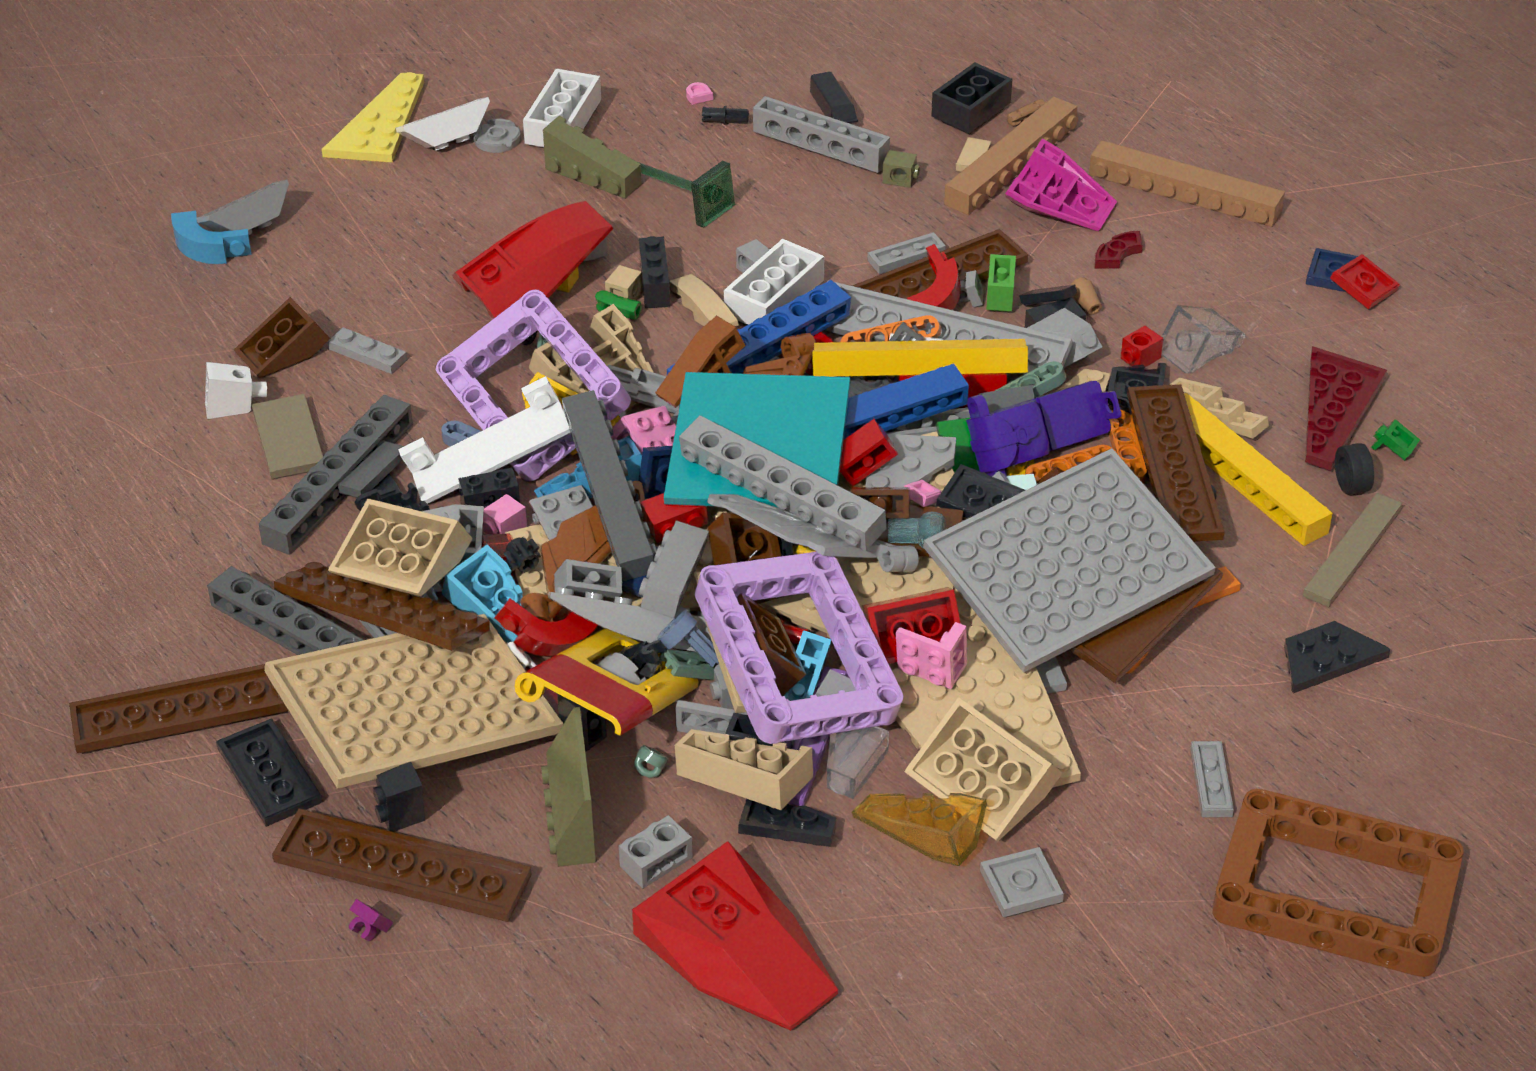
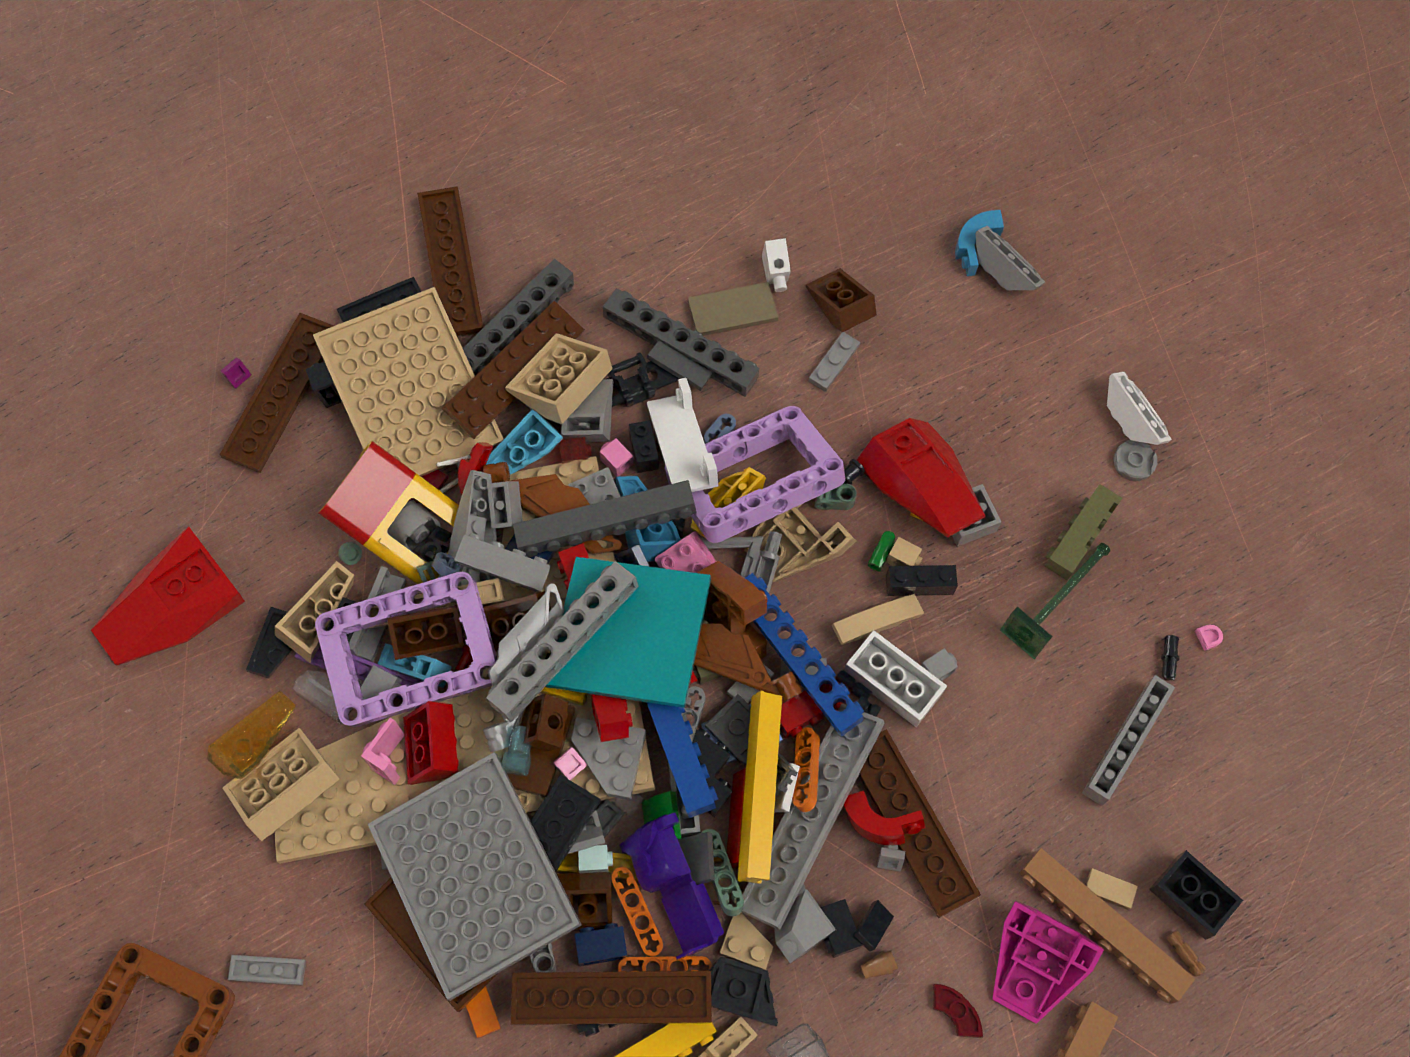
camera: 90 degrees right, 25 degrees up
(373, 131) = (1155, 366): light yellow wing -> none
(522, 554) = (553, 462): black gear -> none
(565, 94) = (1163, 511): white brick -> none
(569, 795) = (296, 496): olive slope -> none
(655, 851) = (259, 551): light grey brick -> none
(832, 97) = (1192, 759): black piece -> none
(900, 168) = (1080, 812): olive brick -> none
(903, 253) = (950, 804): light grey plate -> none
(1001, 282) = (892, 883): bright green brick -> none
(1021, 882) = (185, 803): light grey plate -> none
(1142, 347) = (807, 1006): red brick -> none

